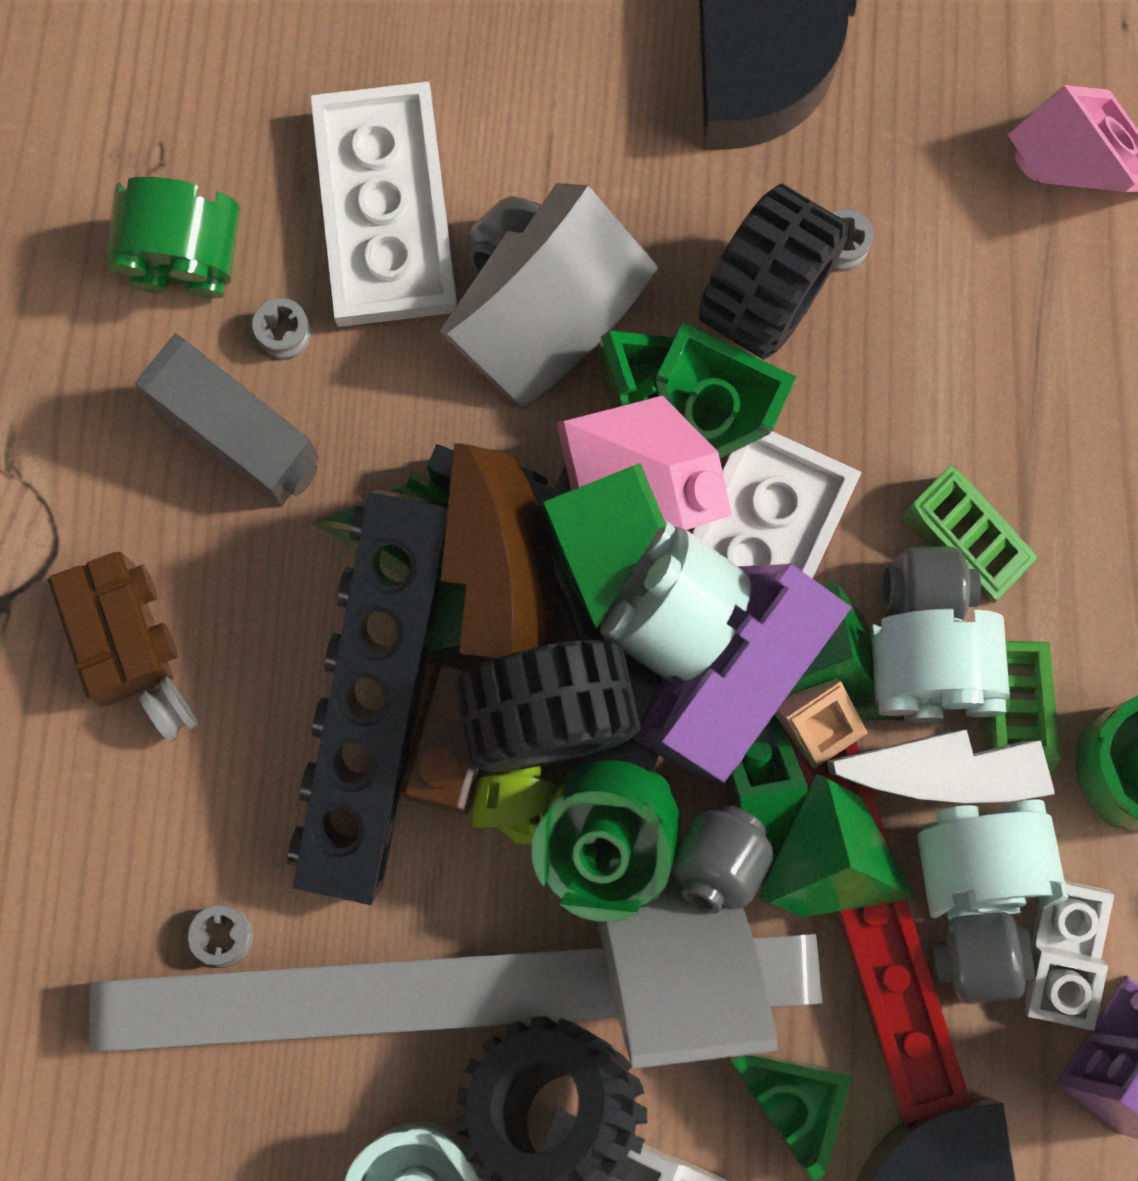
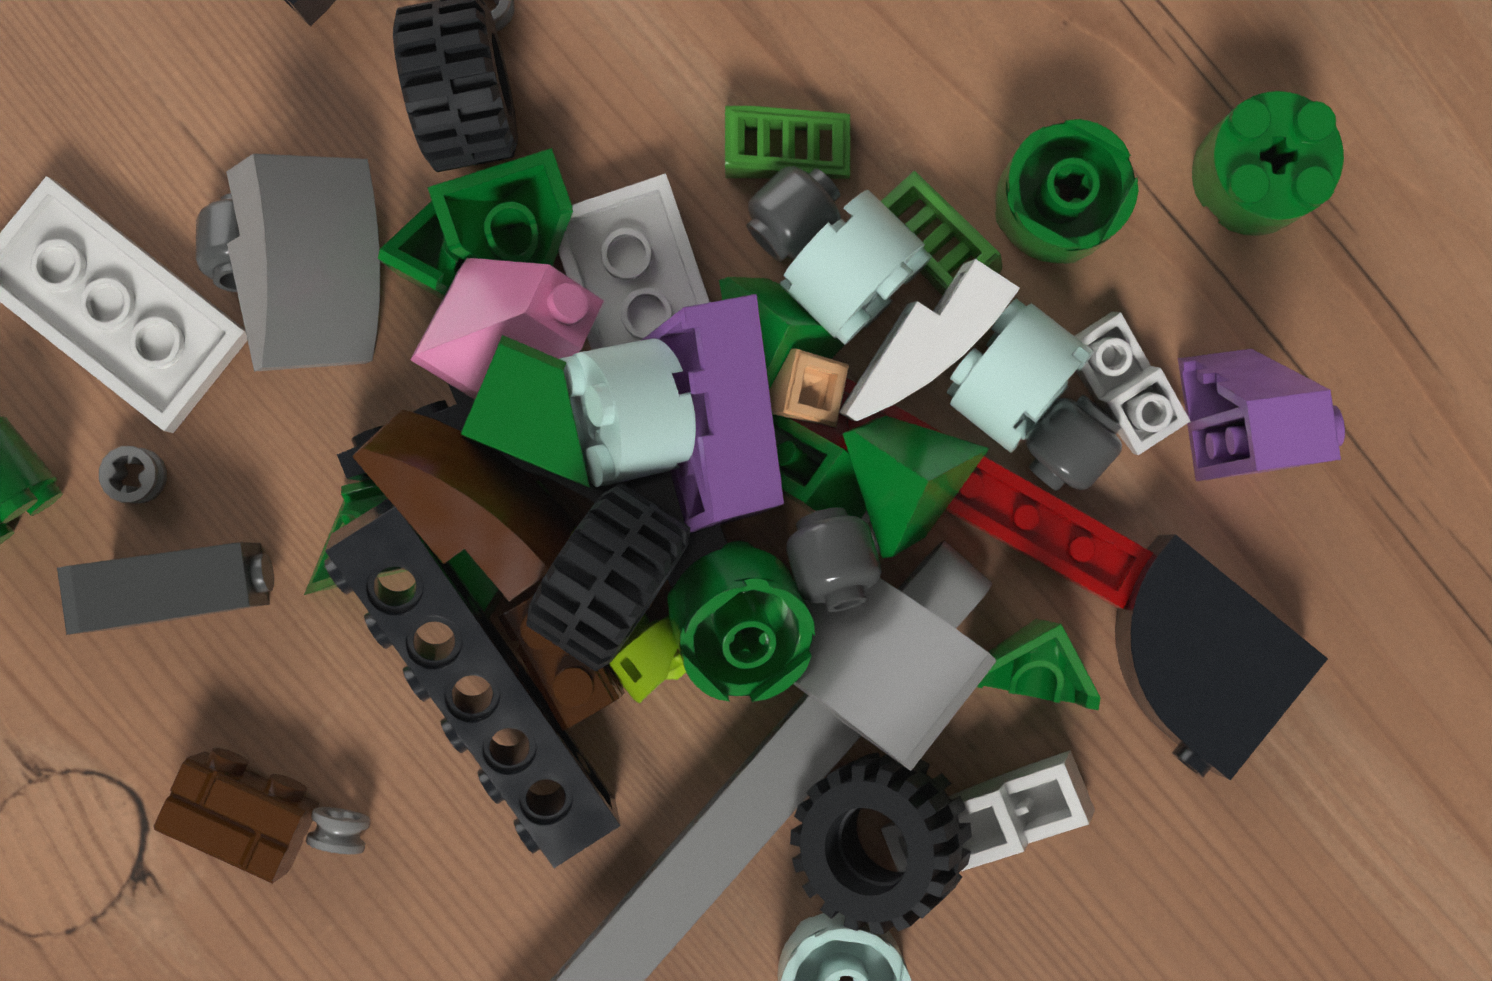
camera: 45 degrees left, 10 degrees up
(200, 939) = (523, 959): light grey bush -> none

